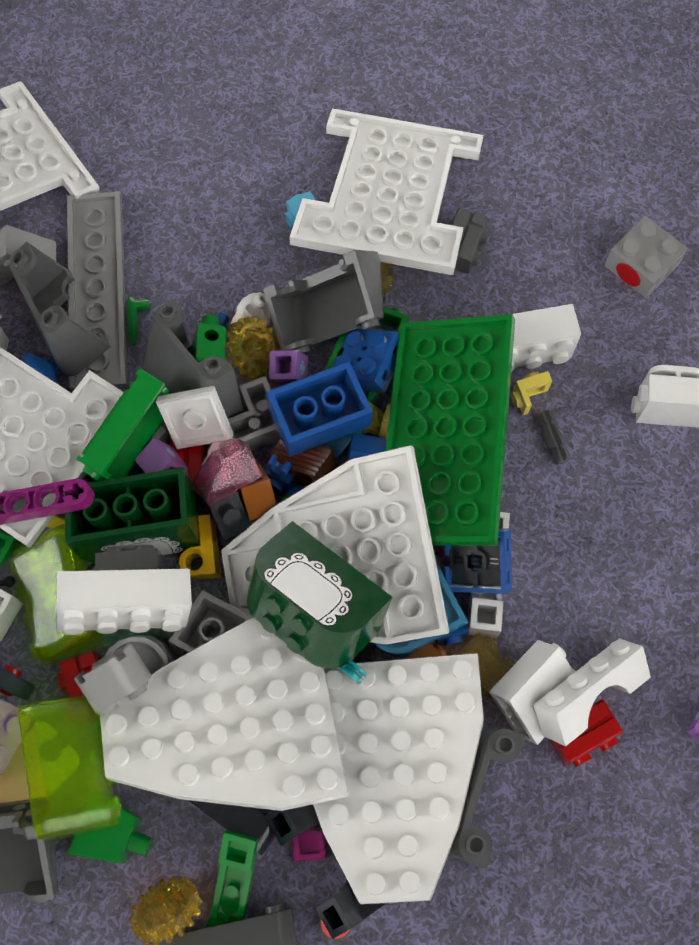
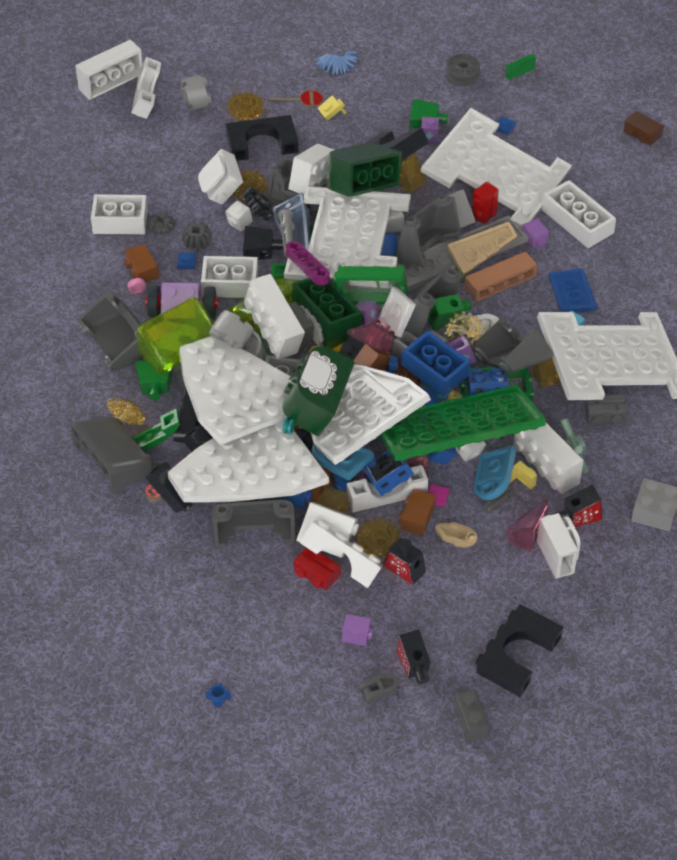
camera: 65 degrees right, 20 degrees down
(31, 210) = (485, 202): none -> red brick
(111, 257) = (477, 248): none -> tan wing
(116, 113) = (578, 214): none -> white brick
(119, 177) = (536, 233): none -> medium lavender brick
(170, 255) = (500, 276): none -> nougat brick
(239, 186) = (572, 291): none -> blue tile
(518, 509) = (441, 494): none -> dark pink tile
(521, 300) = (575, 442): none -> sand green bar
(524, 423) = (494, 472): none -> dark azure tile
(540, 550) = (417, 512): none -> dark orange brick
(555, 613) = (378, 535): none -> clear yellow gear
(597, 516) = (456, 534): none -> tan arm
(622, 344) = (582, 507): none -> black torso
(622, 605) = (405, 561): none -> black torso
(630, 419) = (525, 531): none -> clear pink slope

